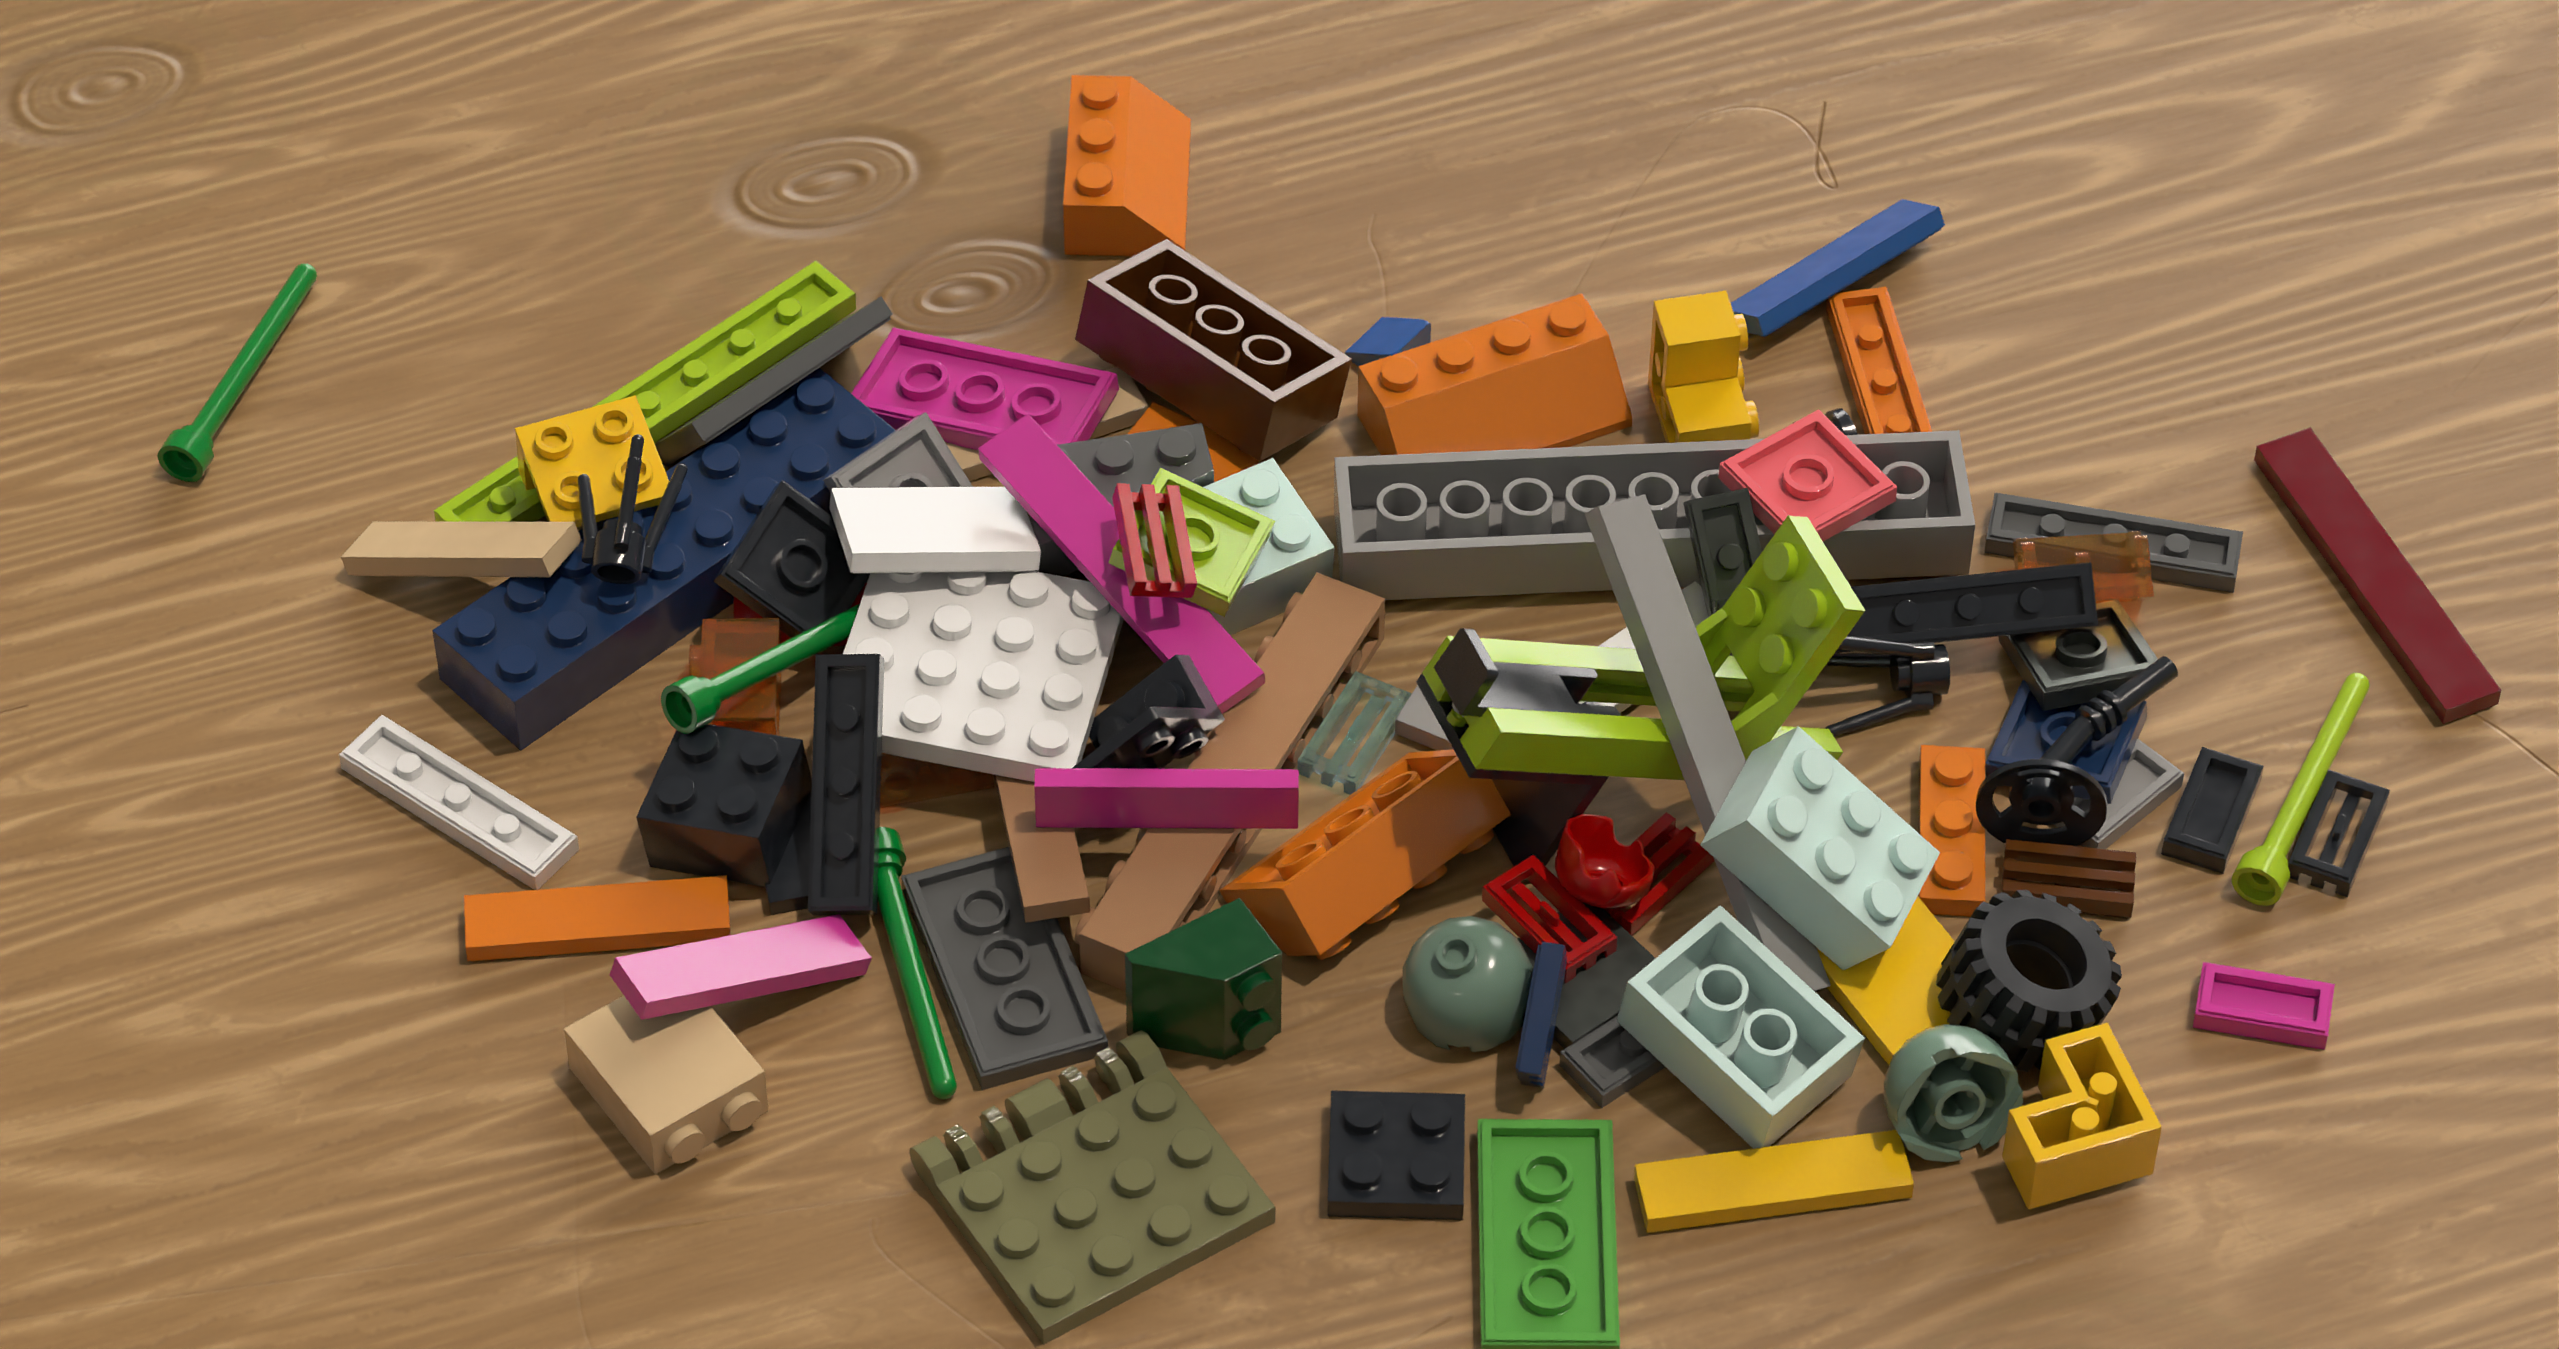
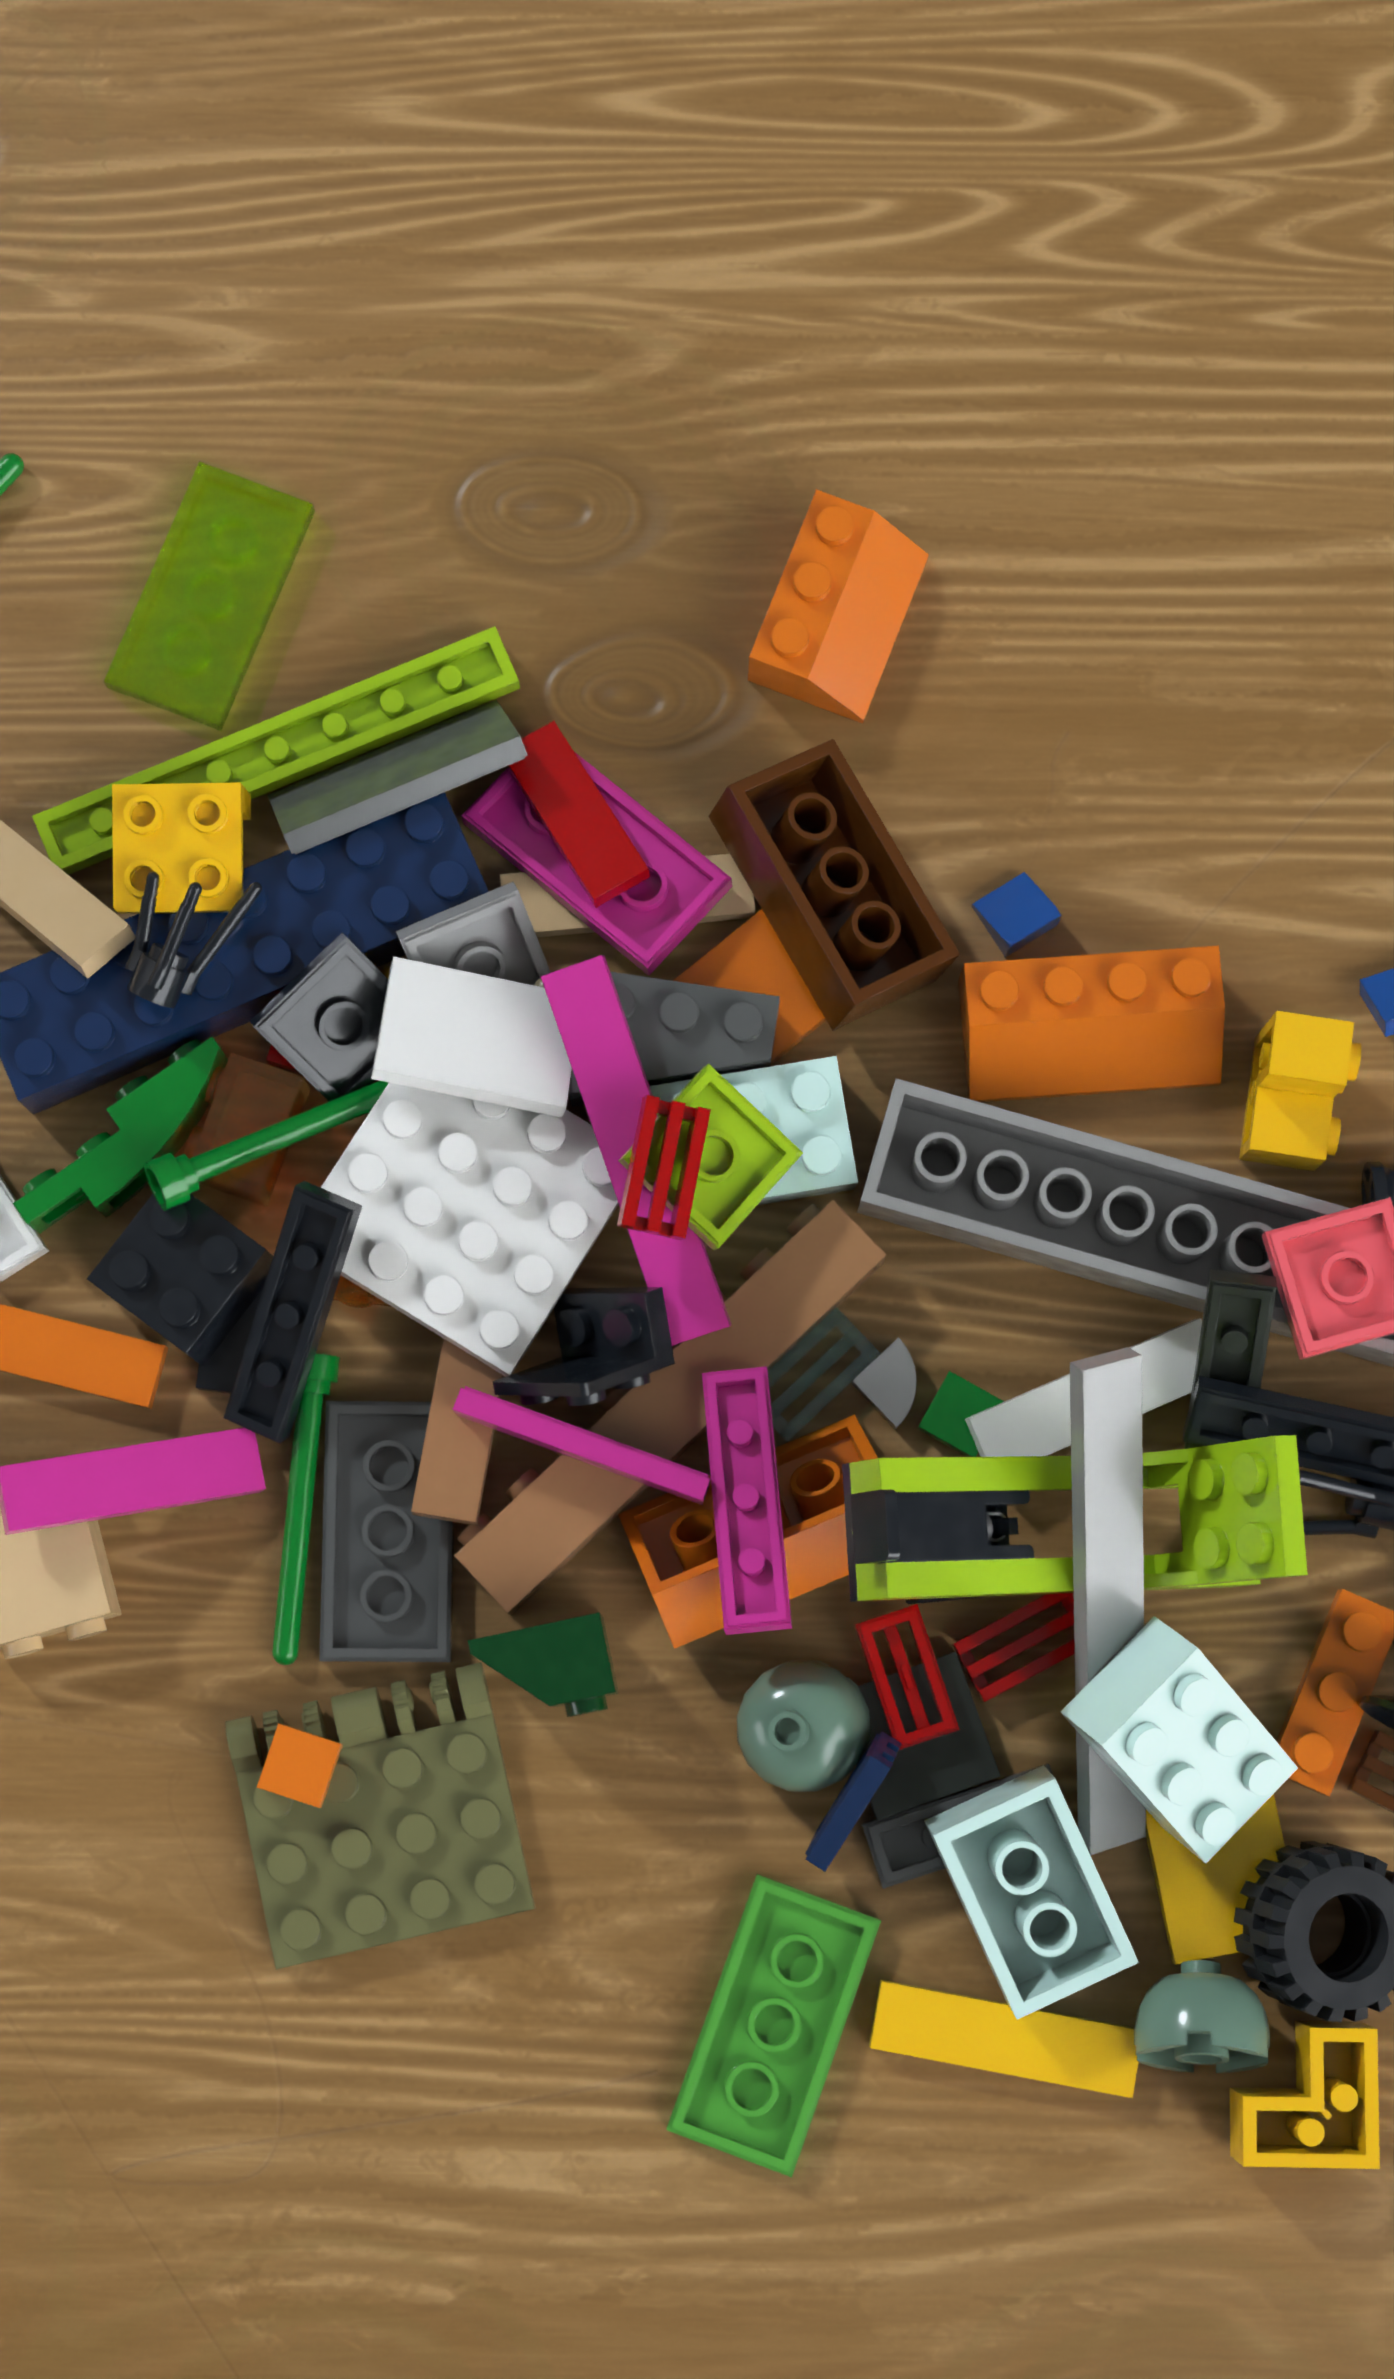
camera: 20 degrees right, 30 degrees up
(533, 320) = (209, 596): none -> clear neon green tile
(633, 738) = (152, 1121): none -> green slope
(951, 366) = (577, 816): none -> red tile
(999, 1143) = (299, 1765): none -> orange tile
(1340, 793) = (746, 1501): none -> dark pink tile
(1396, 1155) = (670, 1882): black plate -> none
(1599, 867) = (975, 1653): red hair -> none

